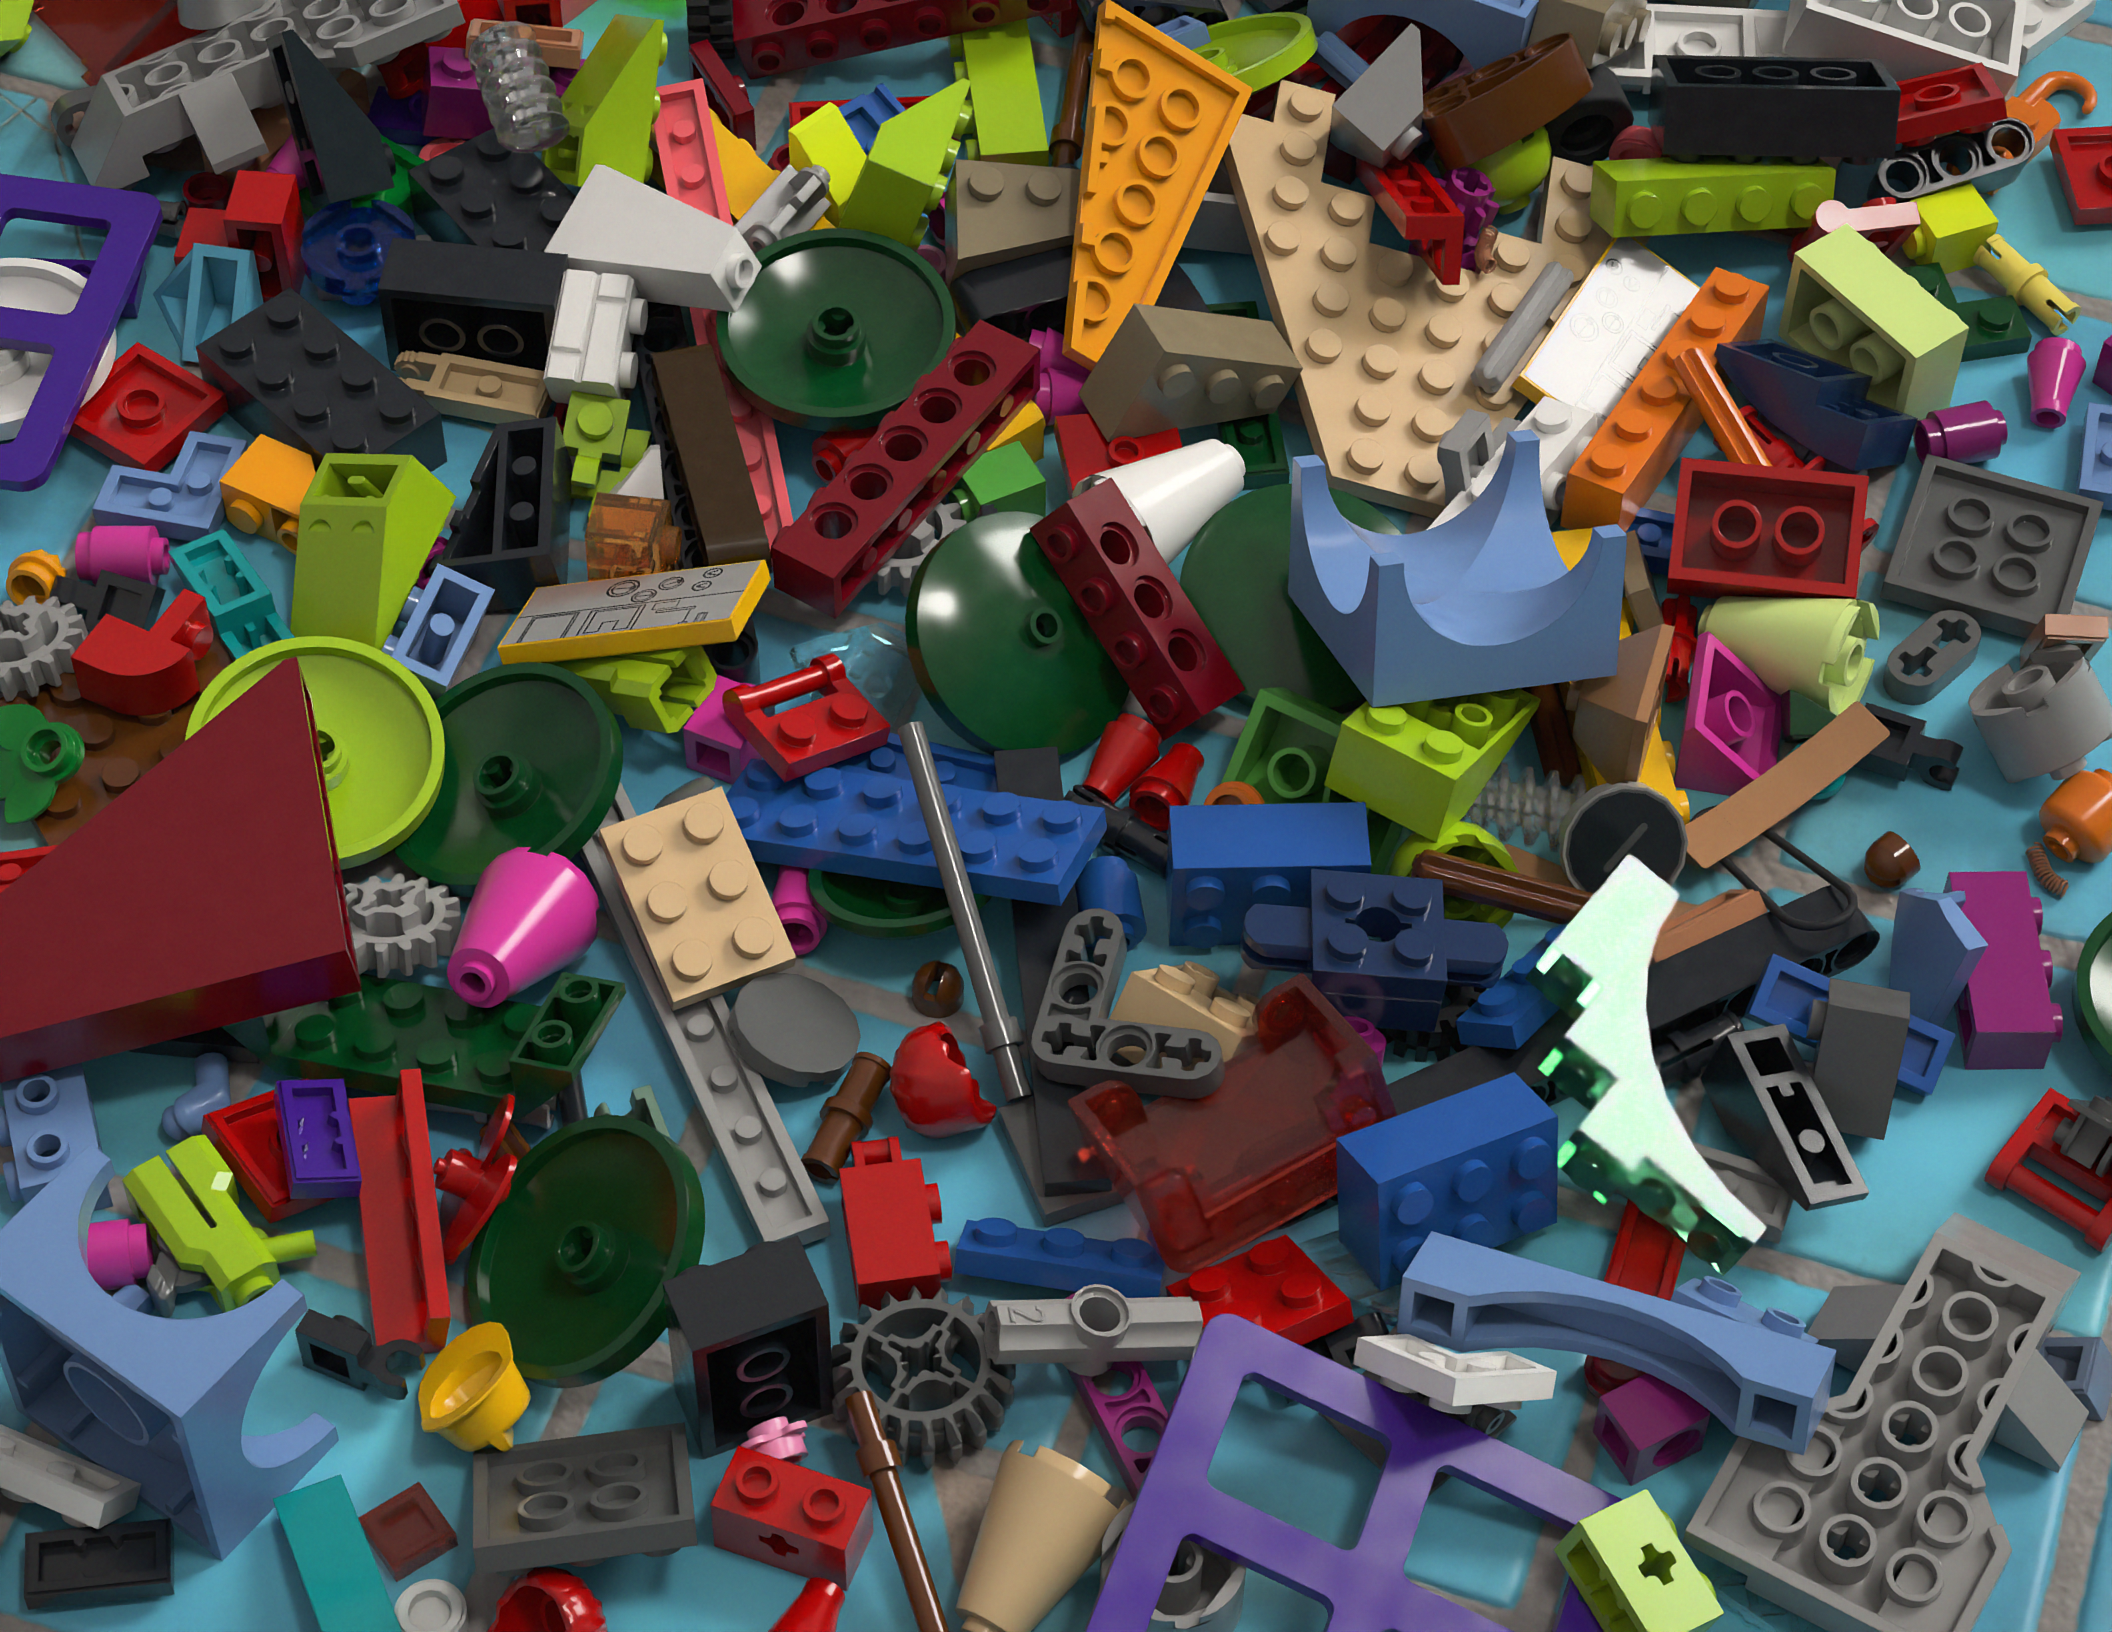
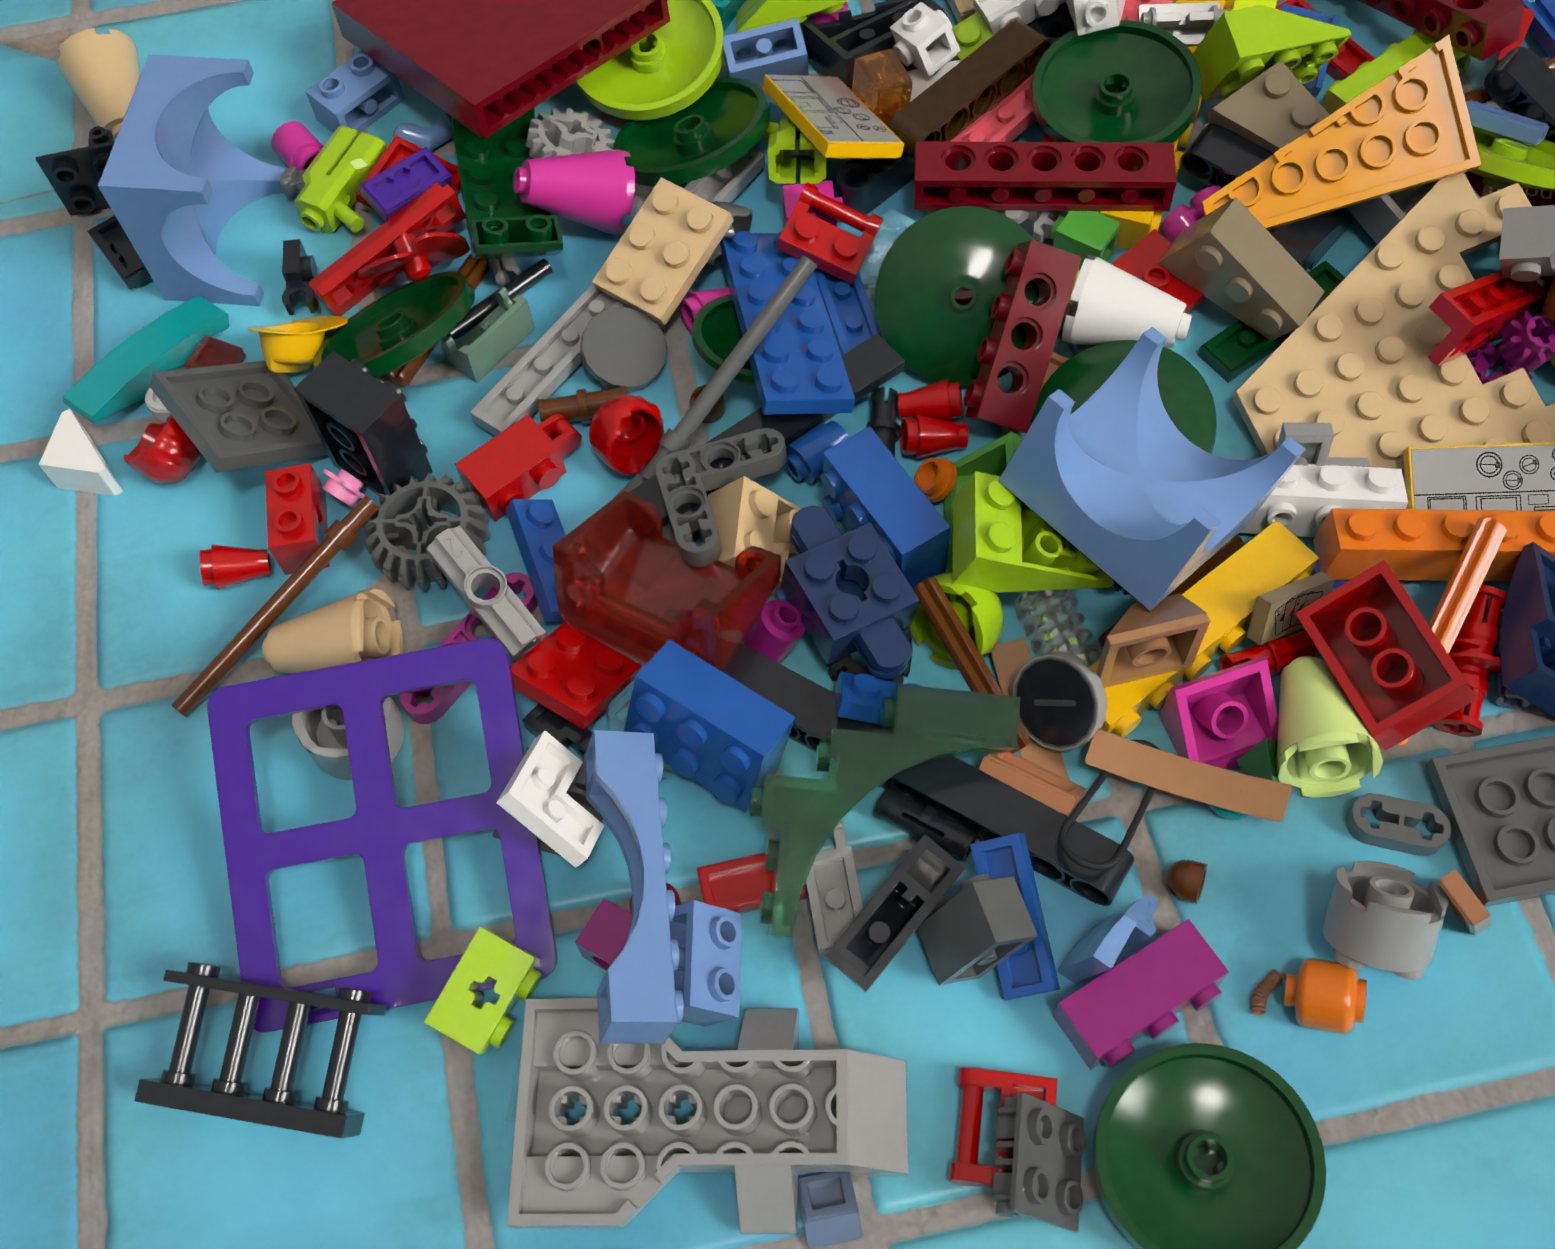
camera: 65 degrees right, 10 degrees up
(597, 455) = (924, 39): none -> white brick
(1485, 253) = (1496, 378): nougat leg -> none
(1522, 327) = (1454, 428): light grey axle -> none
(1909, 748) = (1297, 840): black plate -> none

